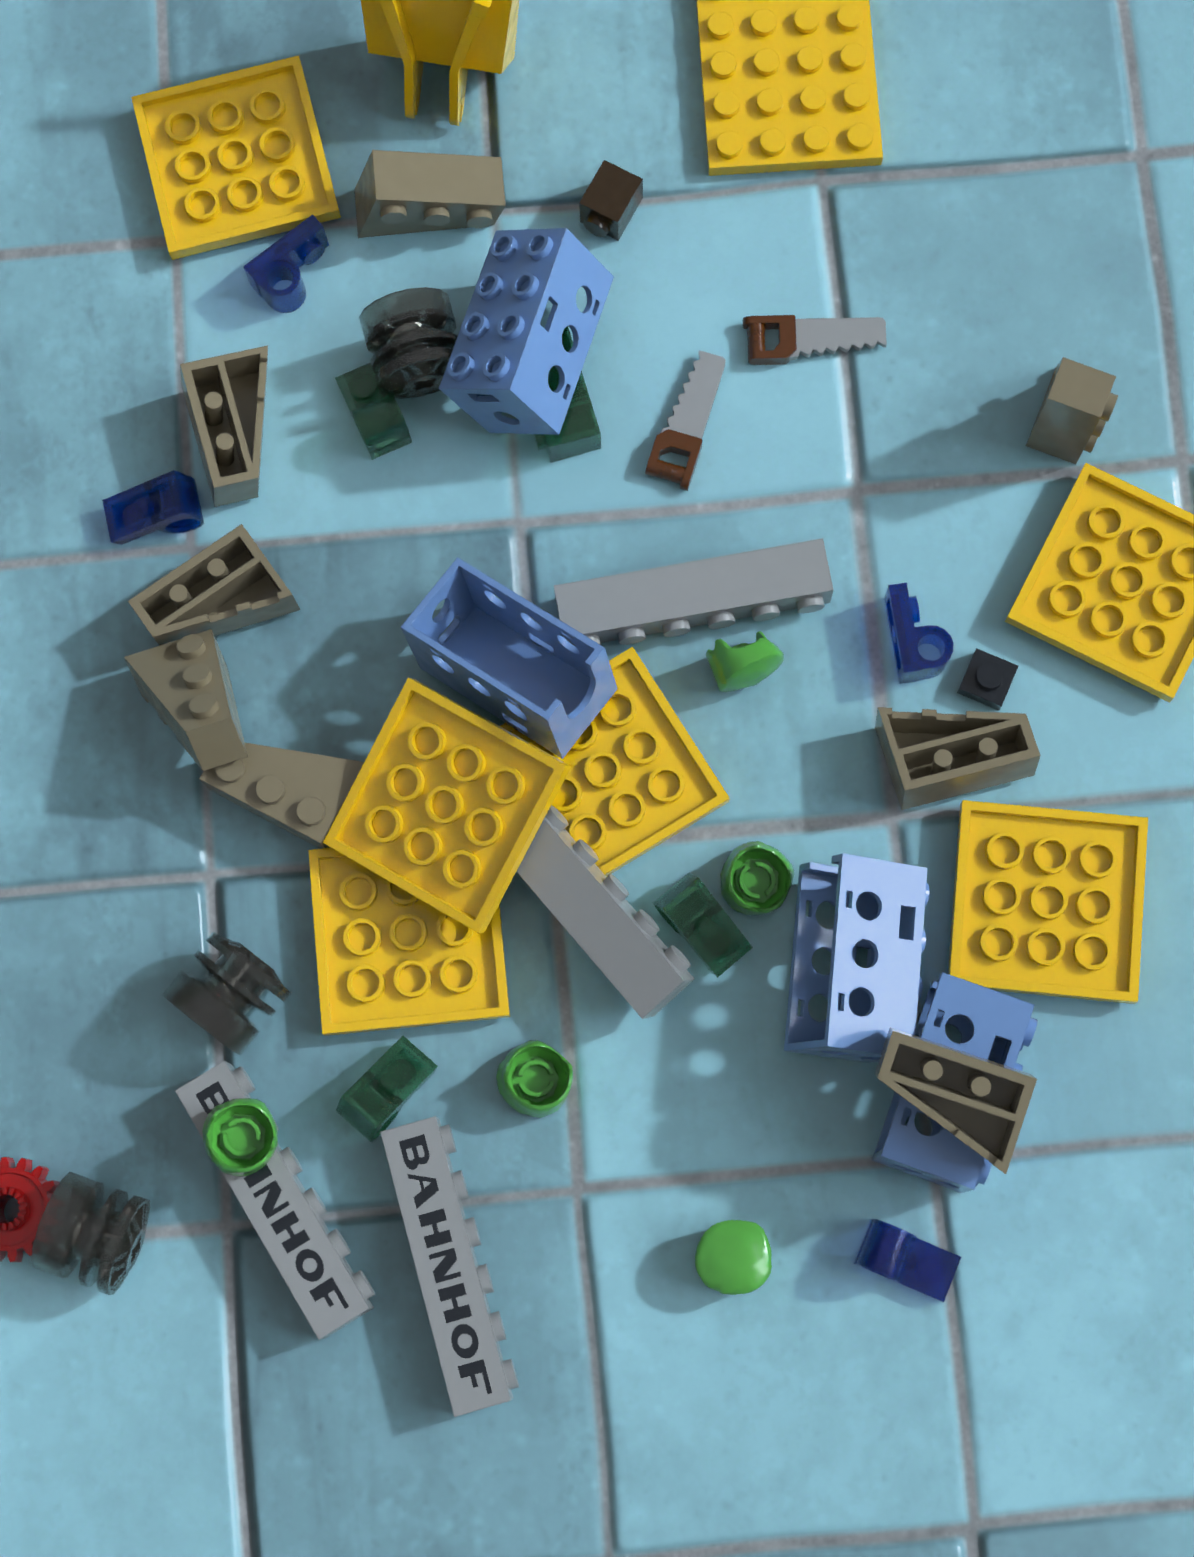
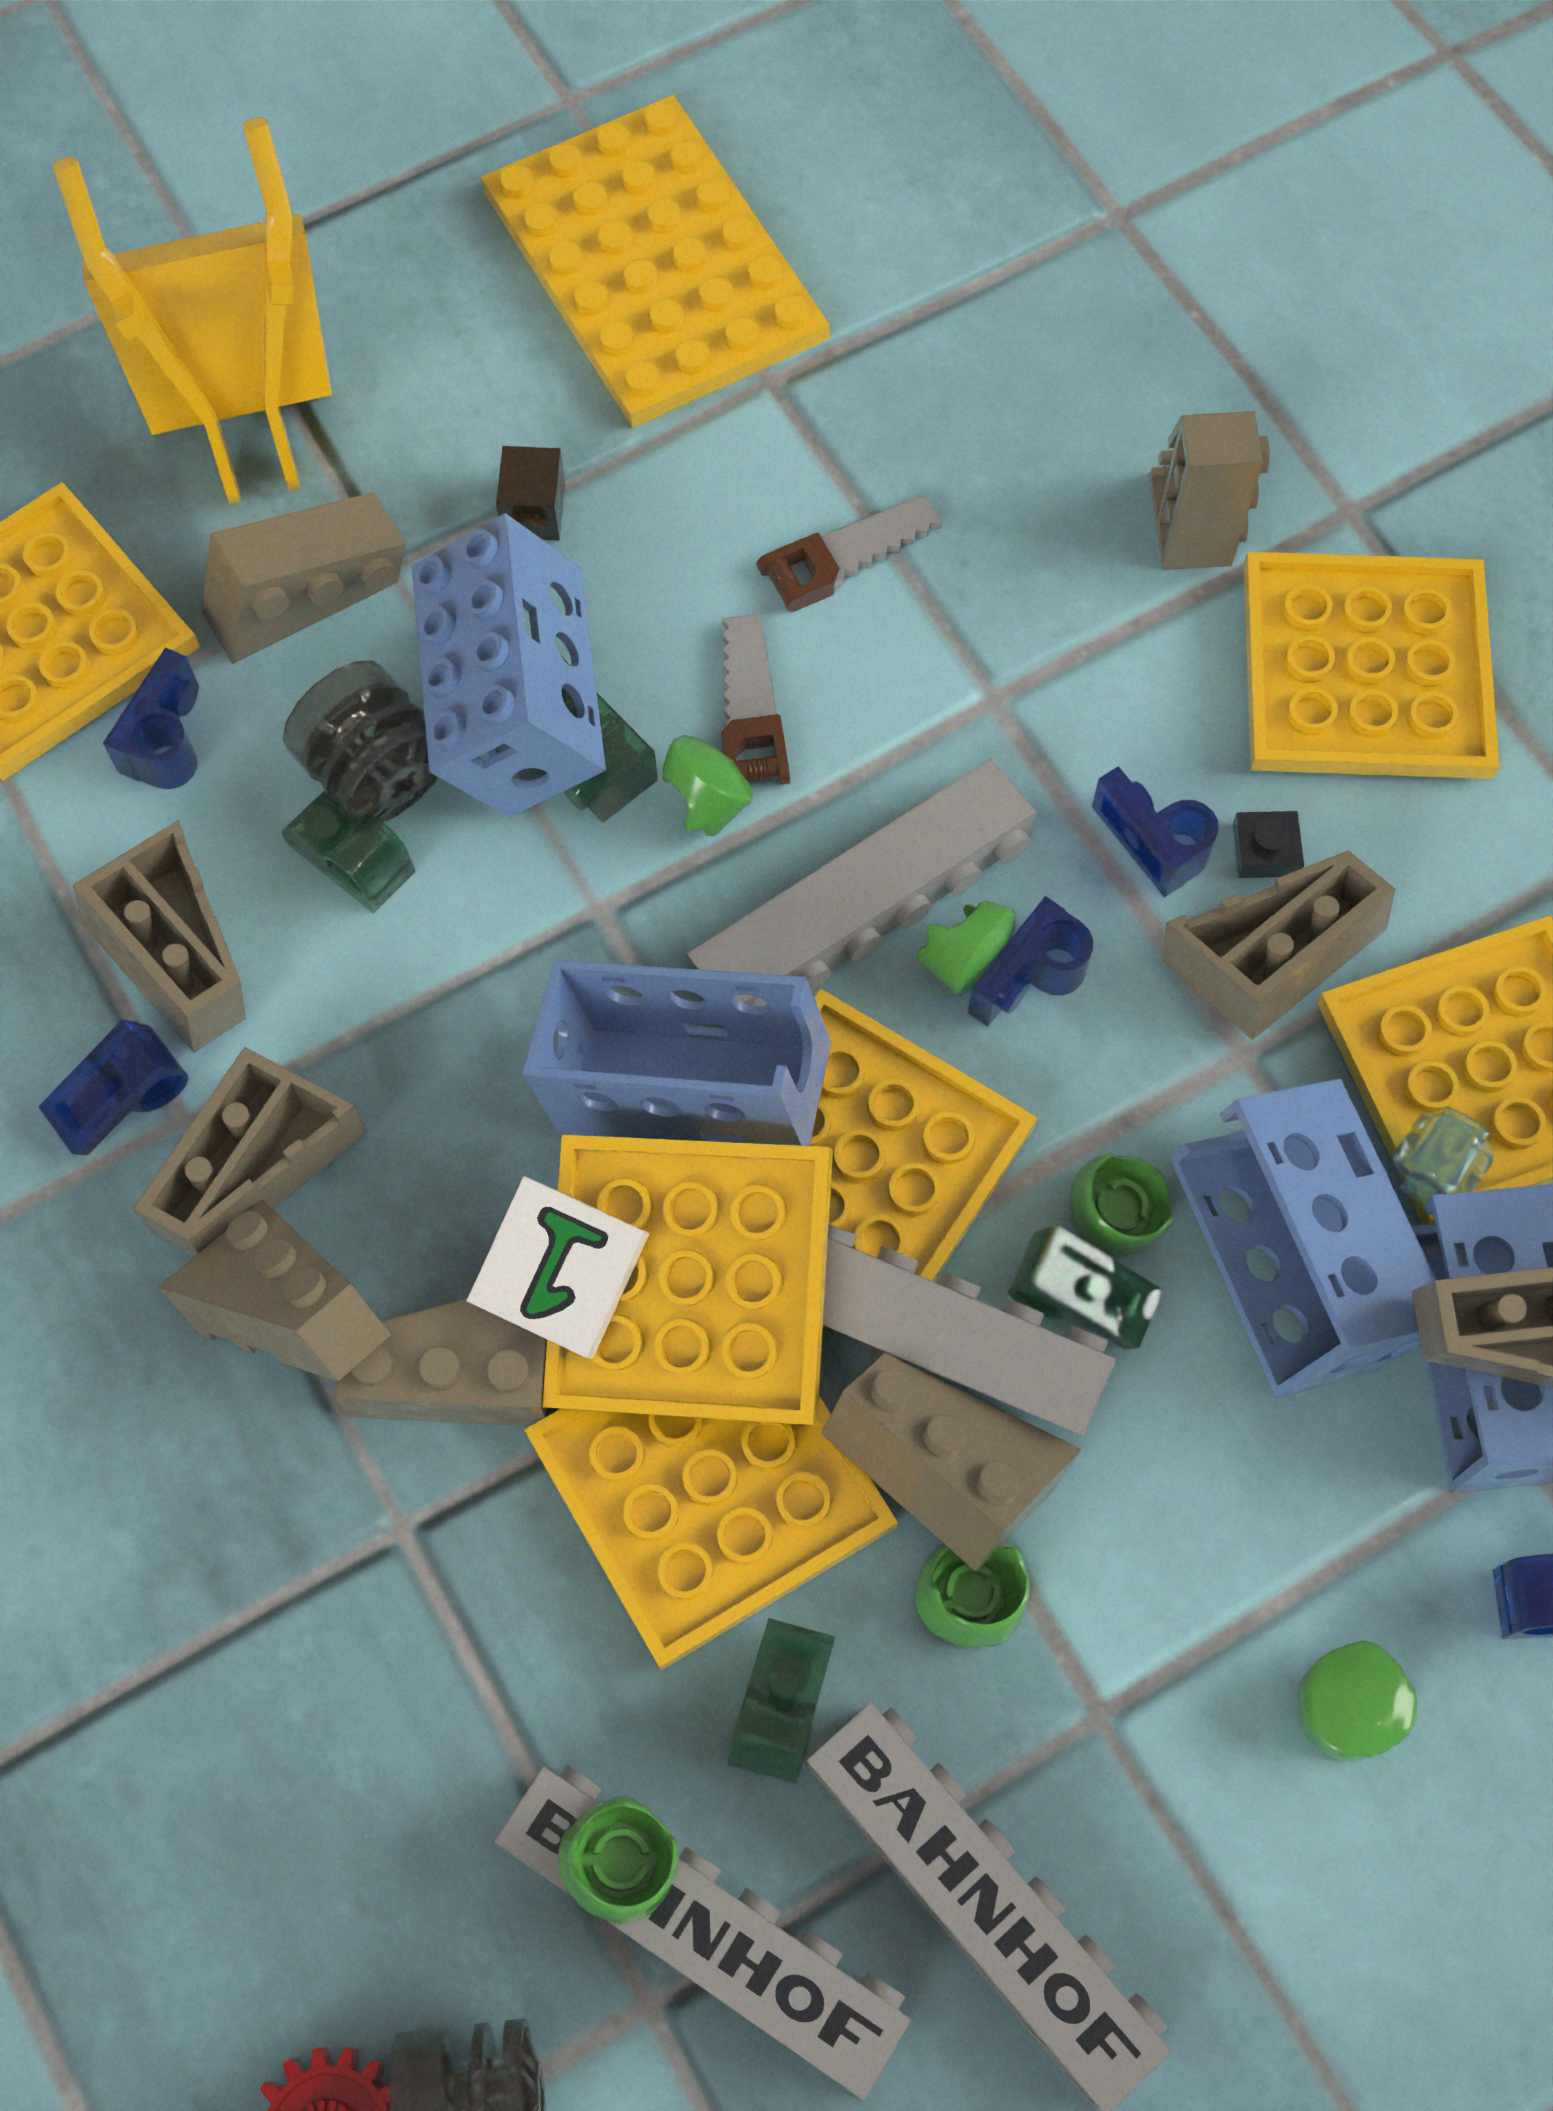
camera: 30 degrees left, 10 degrees down
(226, 993) = (504, 1669): clear smoke wheel -> none
(368, 761) = (558, 1267): none -> white tile
(557, 990) = (947, 1455): none -> dark tan wedge
(624, 470) = (707, 782): none -> bright green hair
(777, 684) = (1026, 962): none -> clear blue plate
(974, 948) = (1443, 1155): none -> clear light blue head

